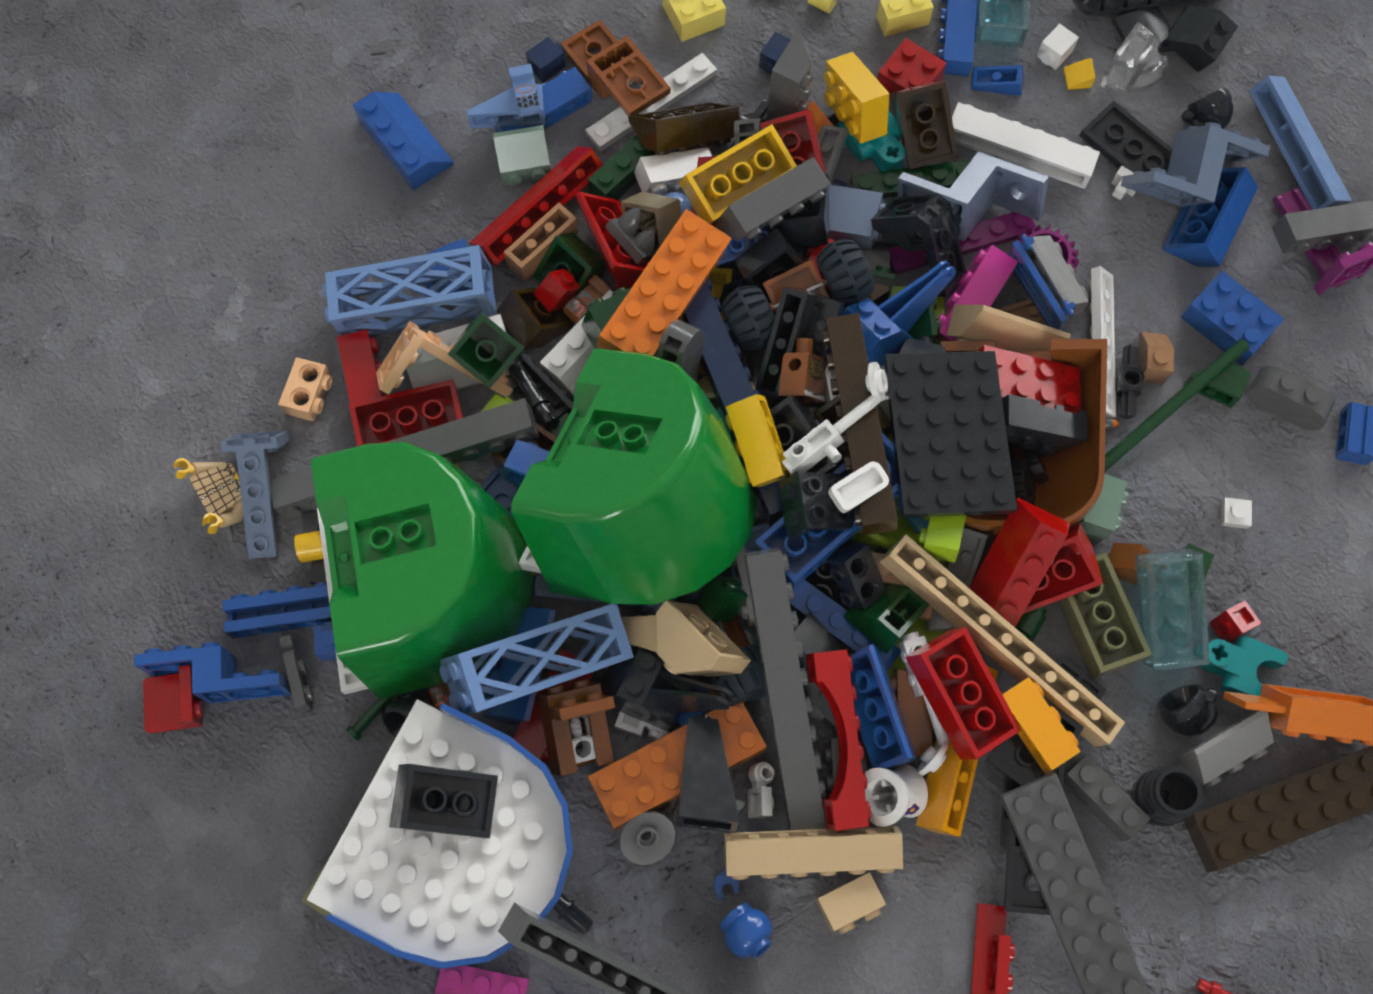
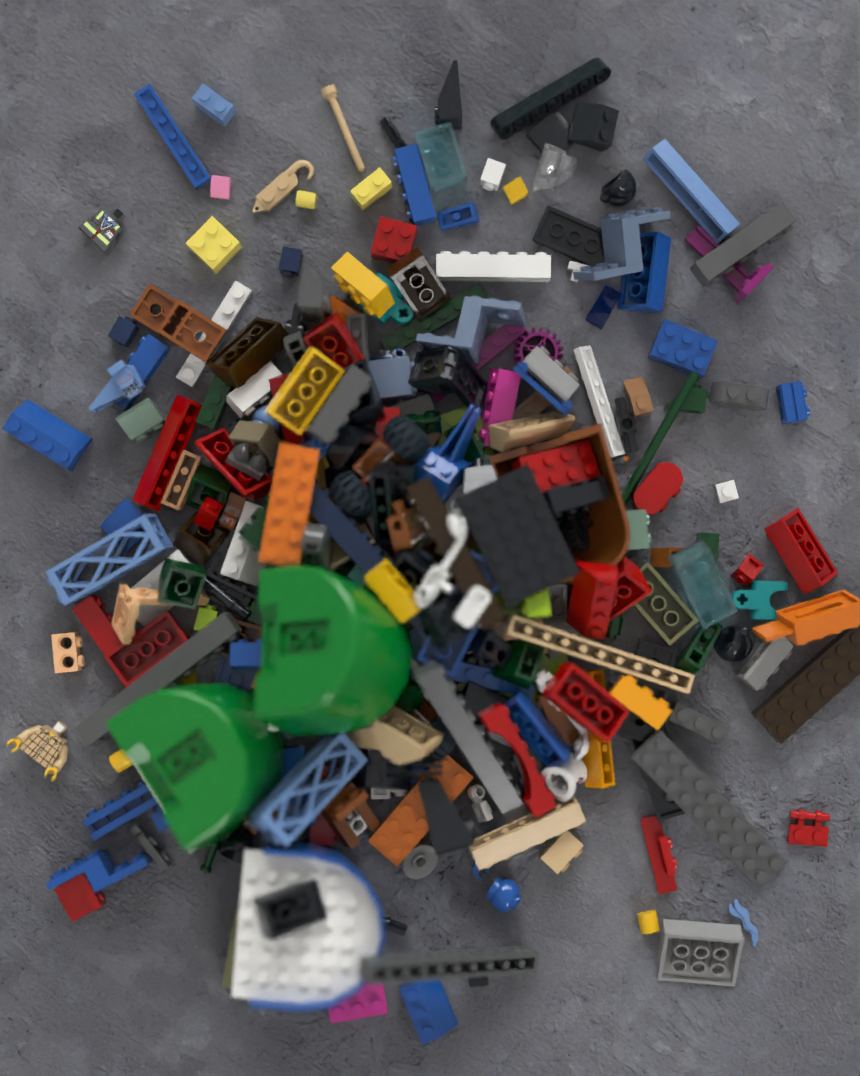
camera: 20 degrees left, 15 degrees up
(255, 487) = (52, 711): sand blue bracket -> none
(1141, 694) = (698, 649): none -> dark green slope
(1144, 238) = (603, 307): none -> clear blue slope
(1150, 471) = (658, 488): none -> red brick
(1182, 792) = (746, 704): black piece -> none
(1316, 623) = (800, 551): none -> red slope

